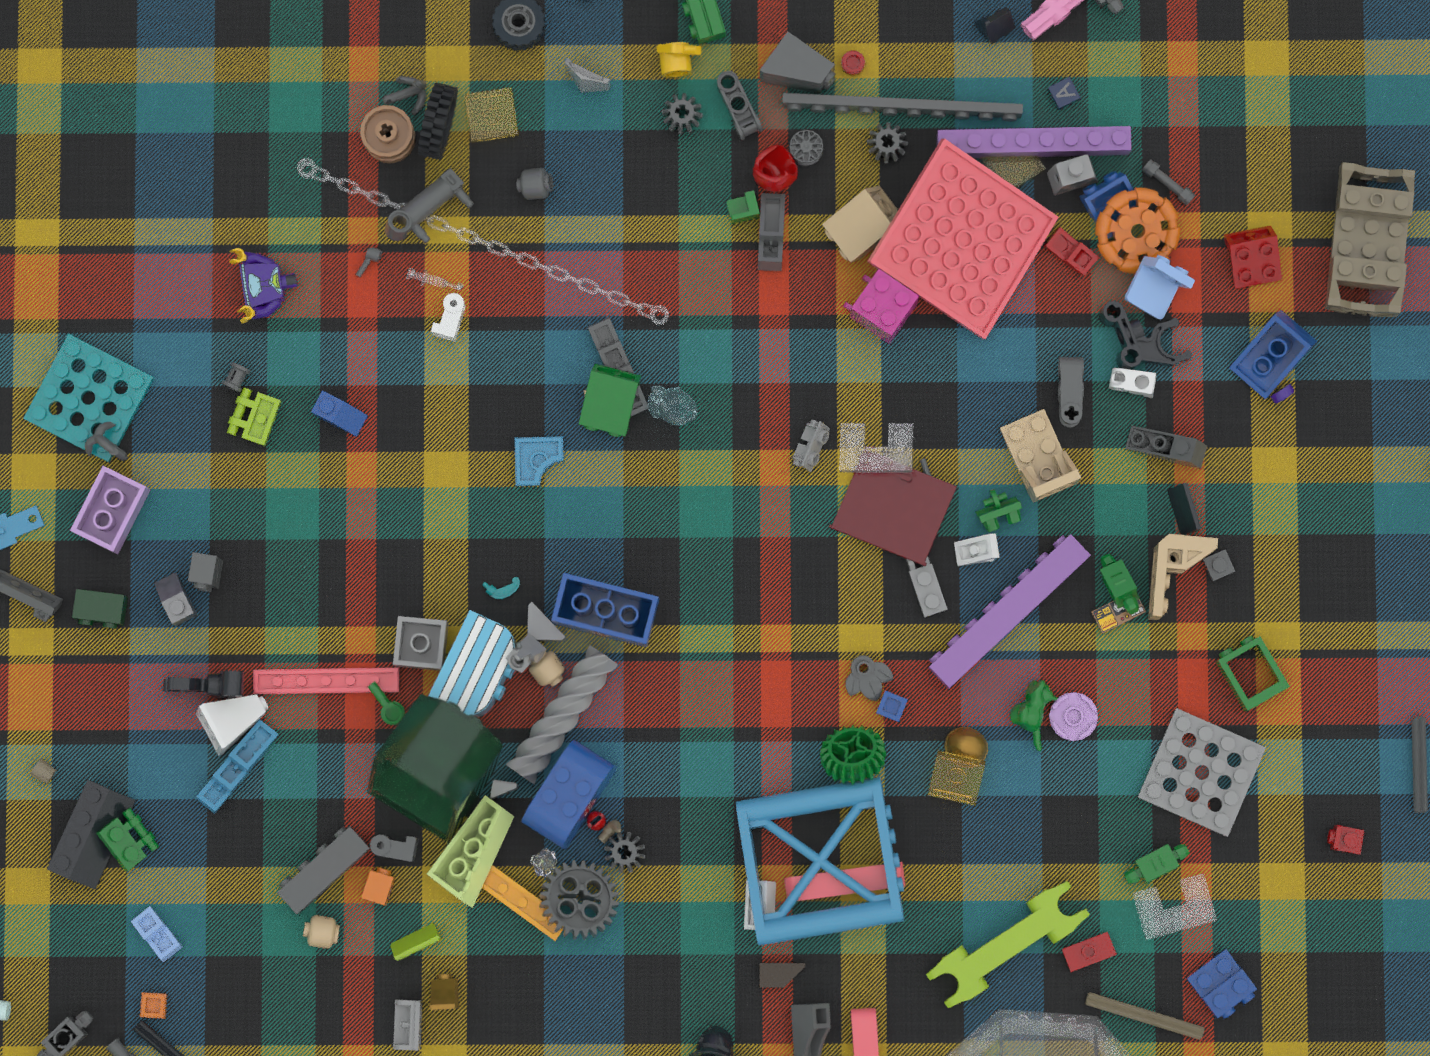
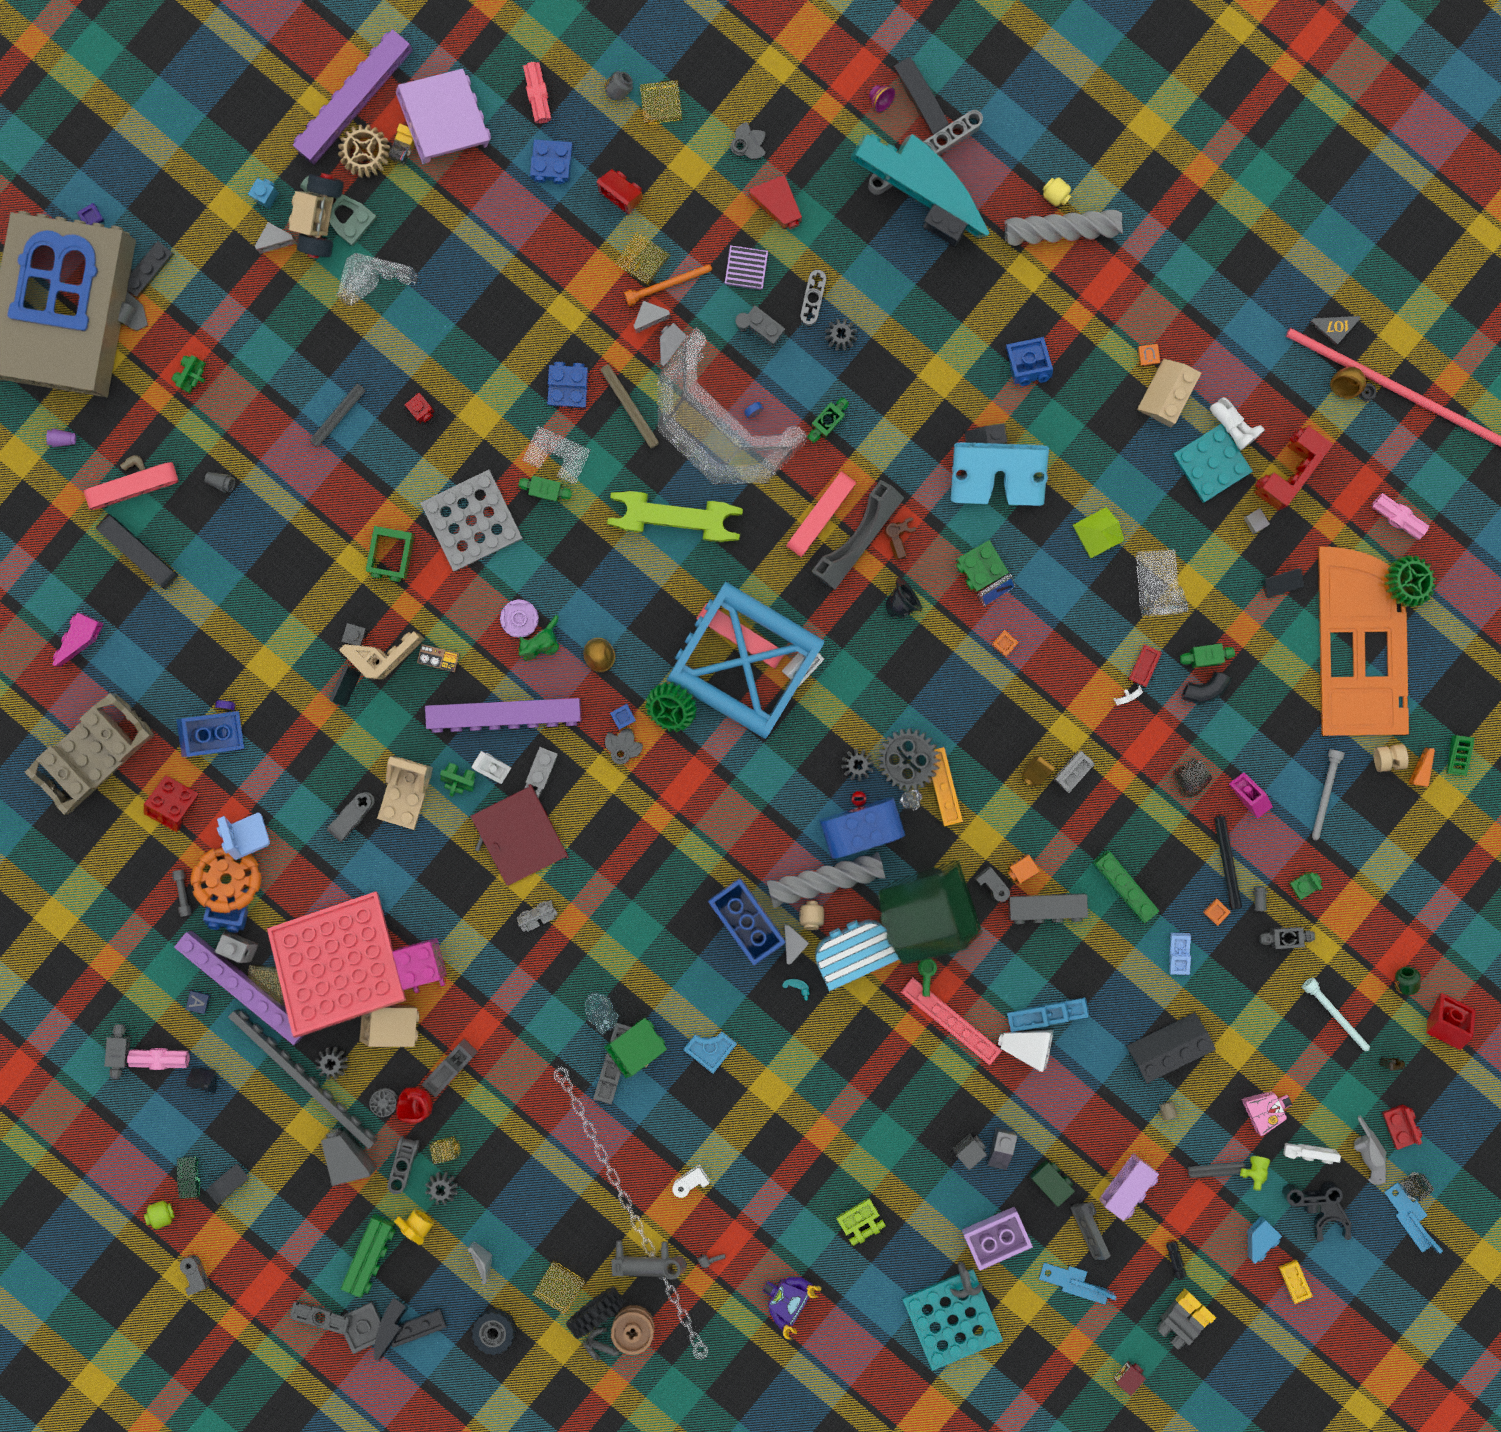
camera: 150 degrees left, 5 degrees up
(22, 665) = (1129, 1187): none -> lavender brick
(121, 843) = (1157, 1025): green plate -> none
(221, 685) = (1018, 1073): black piece -> none
(235, 377) = (852, 1256): dark grey bush -> none
(264, 954) = (1125, 886): none -> green brick
(321, 931) = (1080, 871): tan head -> none
(339, 413) = (807, 1179): blue slope -> none
(415, 942) = (1028, 817): lime slope -> none
(420, 643) = (875, 995): light grey brick -> none
(432, 280) = (681, 1214): clear piece -> none
(472, 851) = (949, 842): yellowish green wedge -> none
(502, 787) = (899, 866): light grey slope -> none
(527, 650) = (814, 936): light grey animal -> none
(535, 183) = (568, 1221): dark grey head -> none
(609, 830) = (854, 786): dark tan animal -> none
(710, 152) = (444, 1150): none -> clear yellow brick
(743, 208) = (454, 1097): green panel -> none
(778, 974) = (826, 614): dark brown tile -> none
(852, 63) = (310, 1131): red tile -> none
(890, 459) = (494, 865): clear plate -> none
(956, 778) = (620, 640): clear yellow tile -> none
(1070, 251) = (278, 900): red slope -> none
(1088, 951) = (630, 471): red plate -> none
(1119, 584) = (422, 673): green piece -> none
(1133, 381) = (308, 789): white leg -> none
(1134, 341) = (287, 812): black piece -> none
(1167, 446) = (322, 732): dark grey slope -> none

